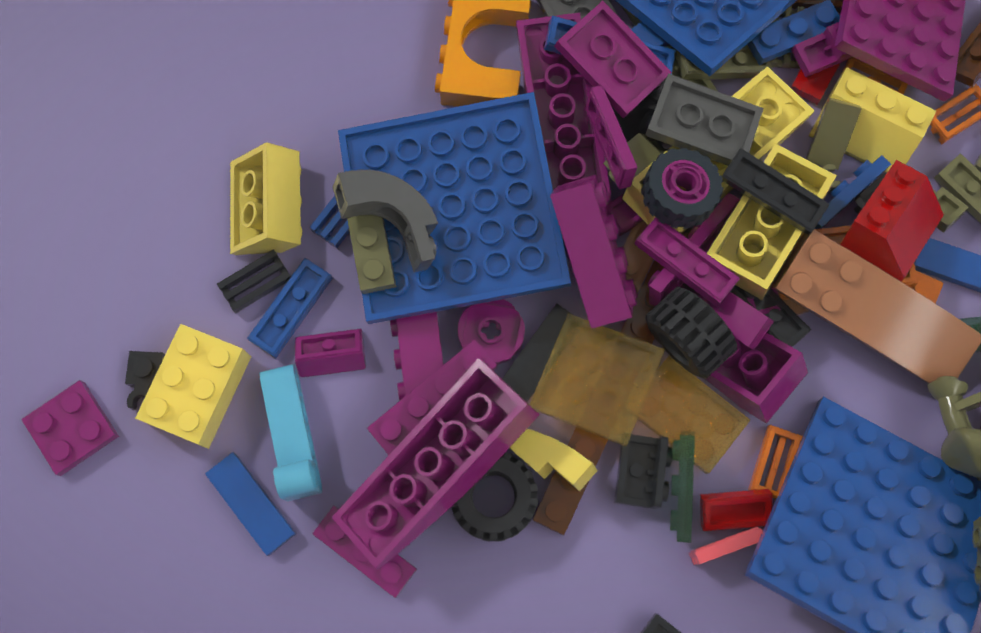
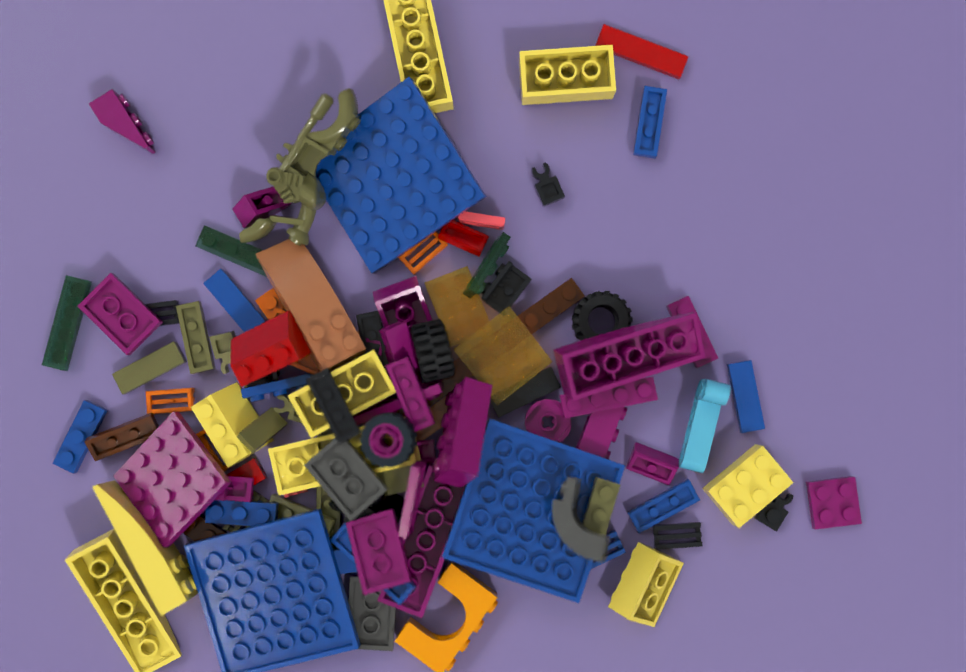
camera: 150 degrees left, 10 degrees up
(548, 454) = (557, 326): light yellow slope -> none

